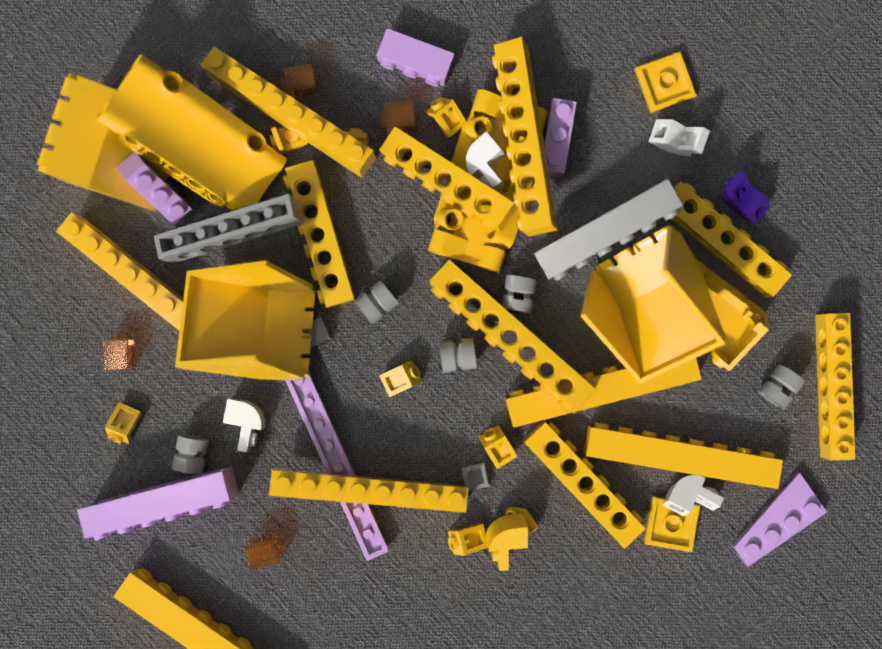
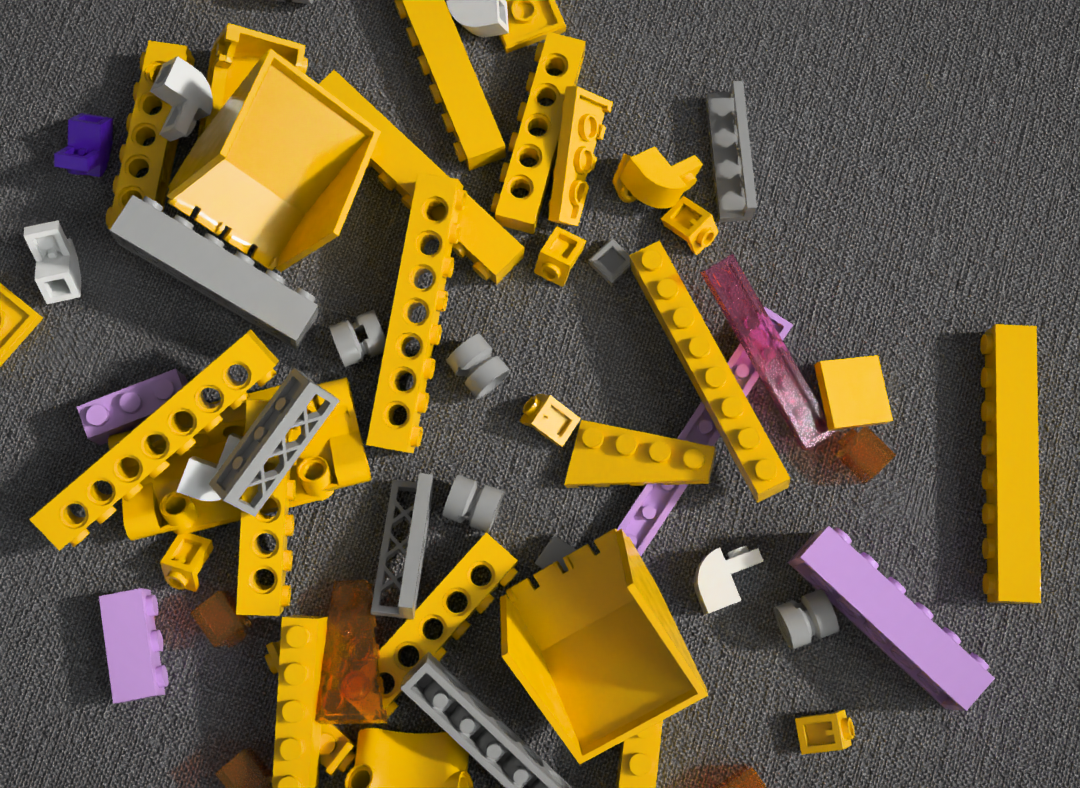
camera: 125 degrees left, 10 degrees down
(304, 570) = (853, 392): none -> yellow tile
(319, 171) = (350, 671): none -> clear orange wing
(345, 413) = (623, 456): none -> yellow wing
(358, 533) = (767, 352): none -> clear pink plate
(359, 244) = (415, 547): none -> light grey fence
(480, 200) = (267, 439): none -> light grey fence
(498, 594) = (731, 154): none -> light grey fence
(555, 496) = (575, 158): none -> yellow wing
(739, 278) = (188, 95): none -> white brick

